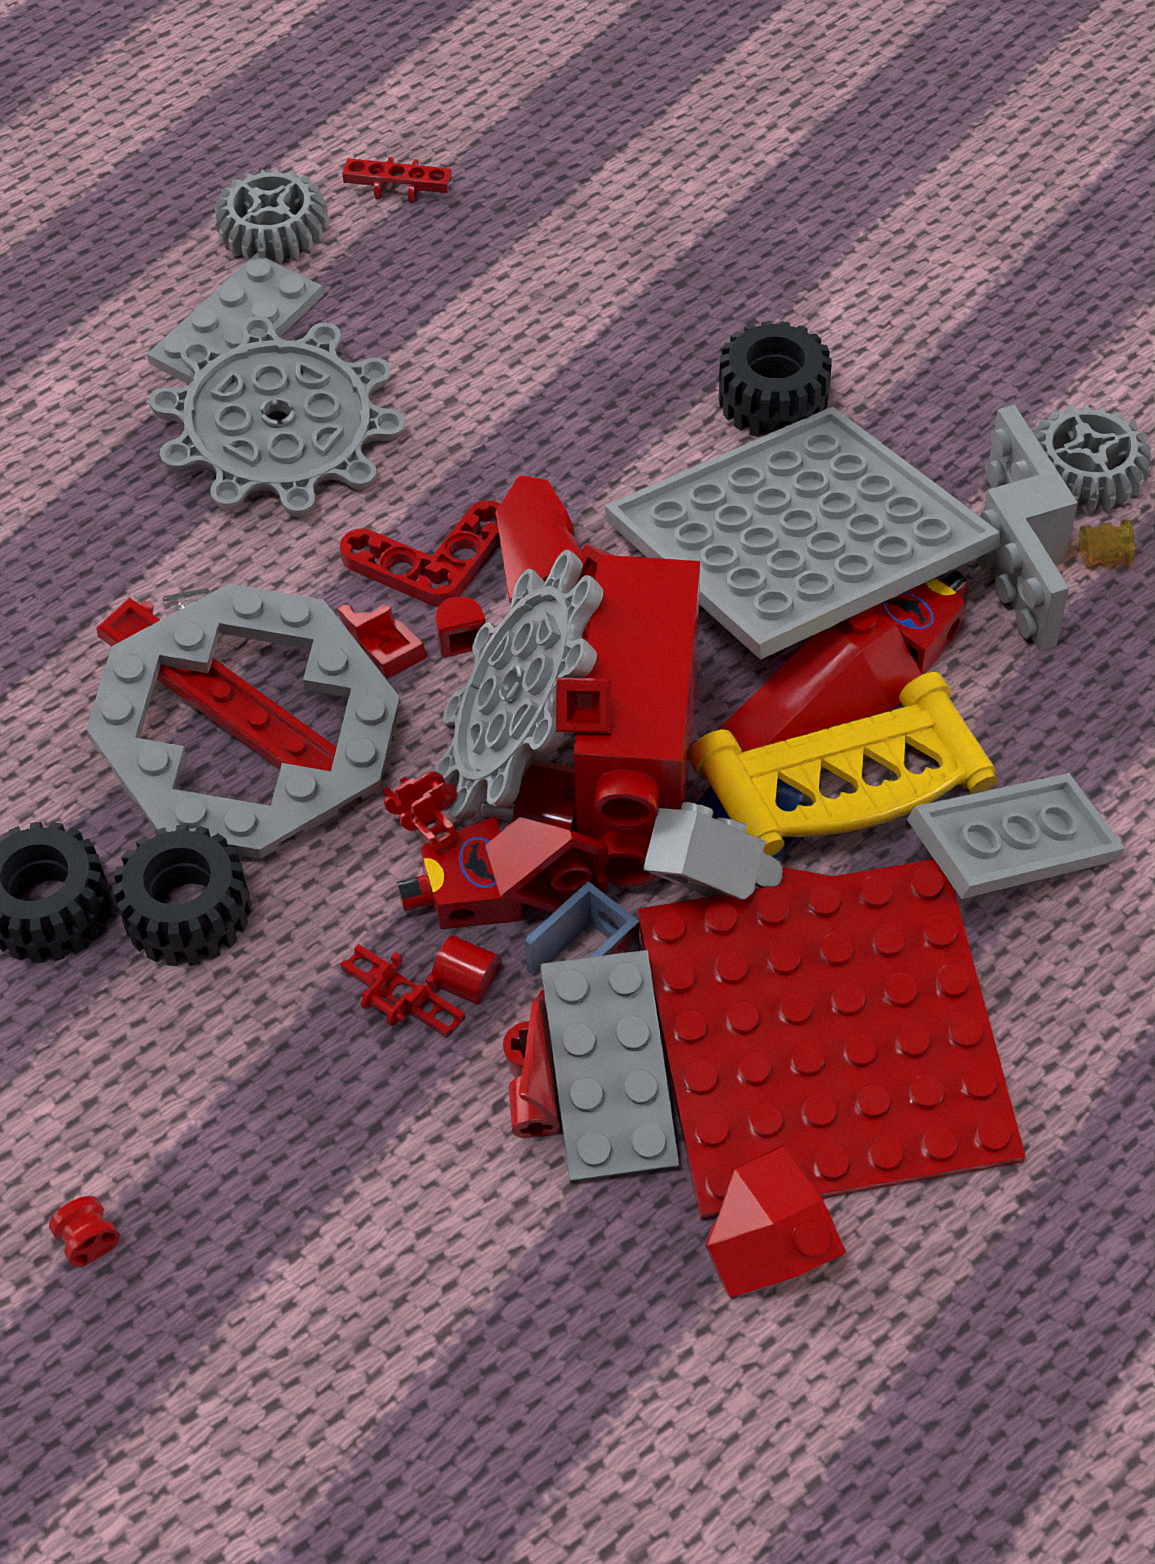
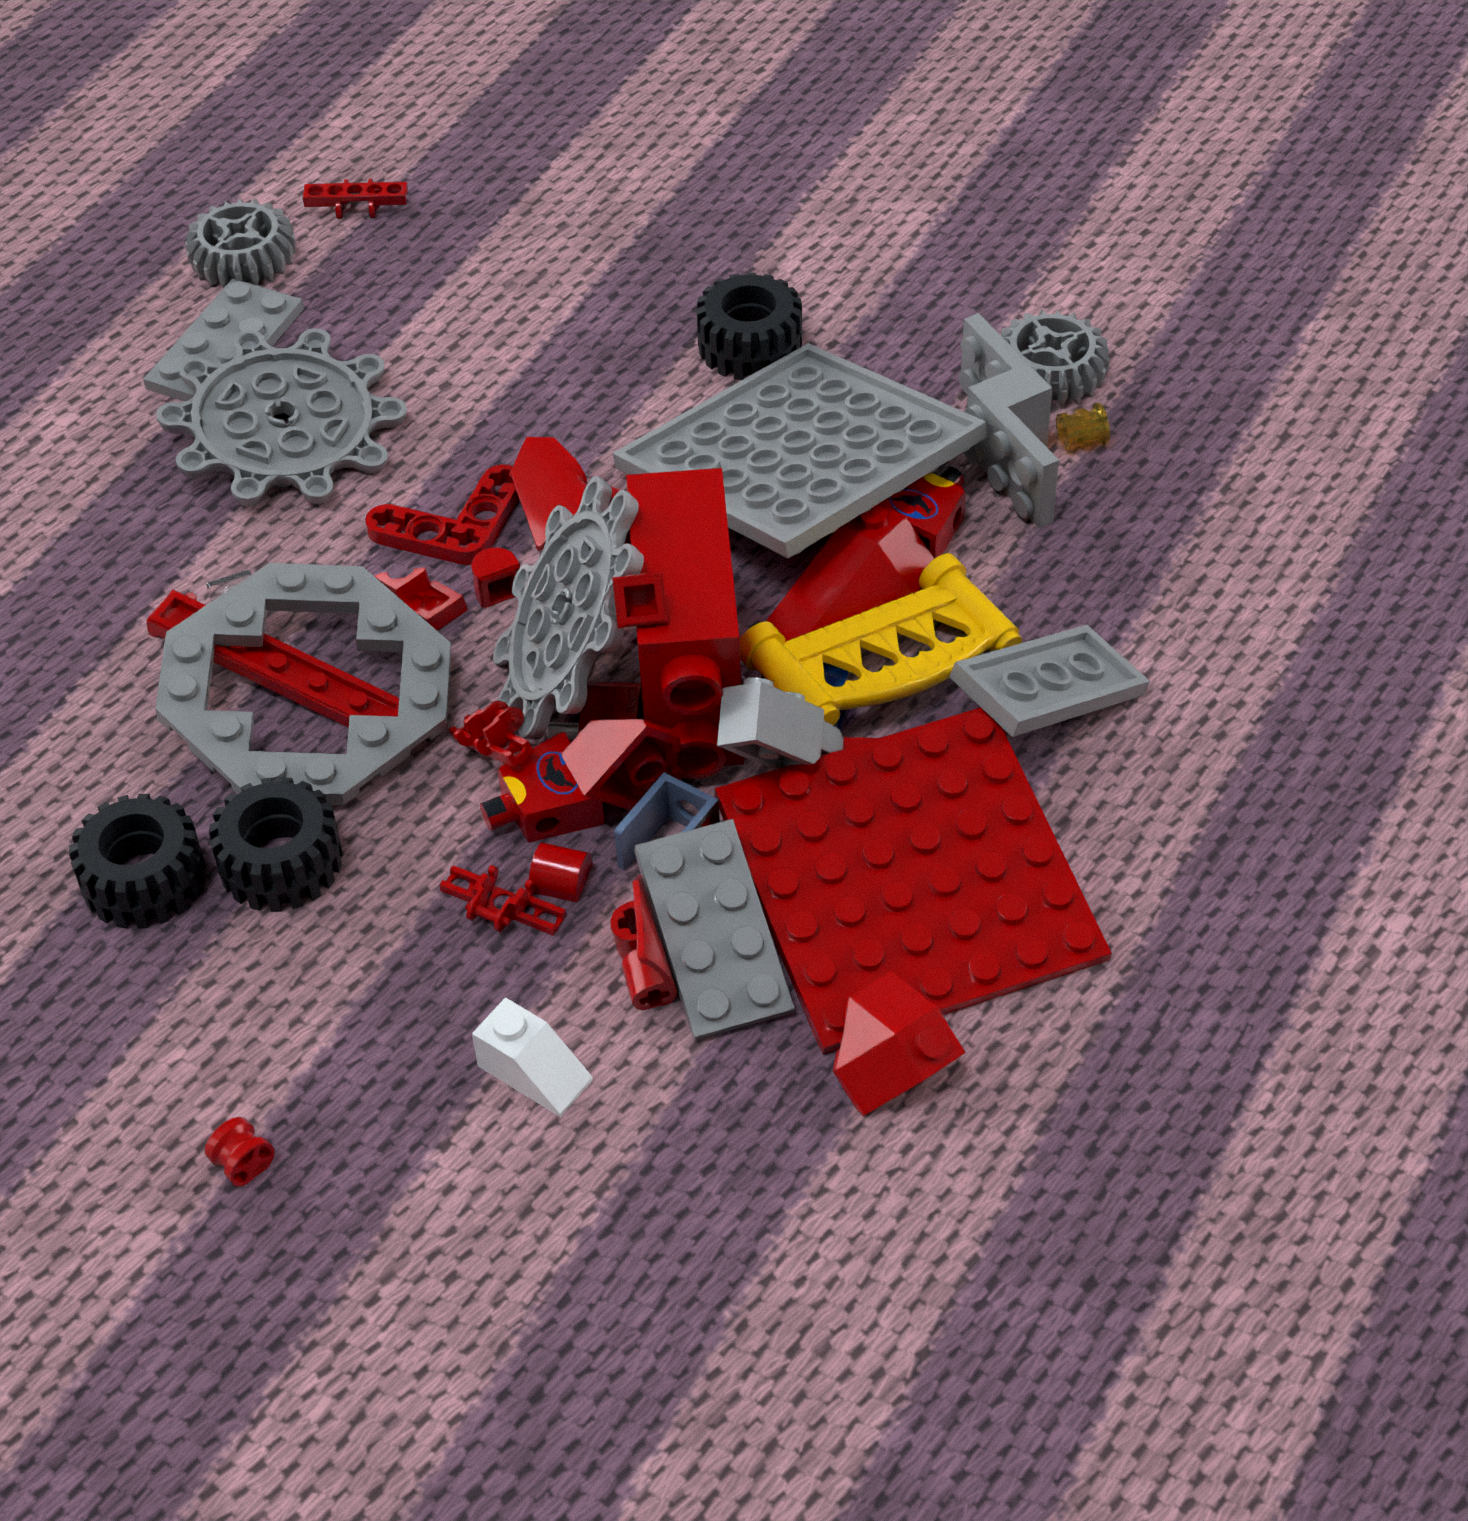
camera: 10 degrees left, 5 degrees down
(395, 1177) = (529, 1057): none -> white slope

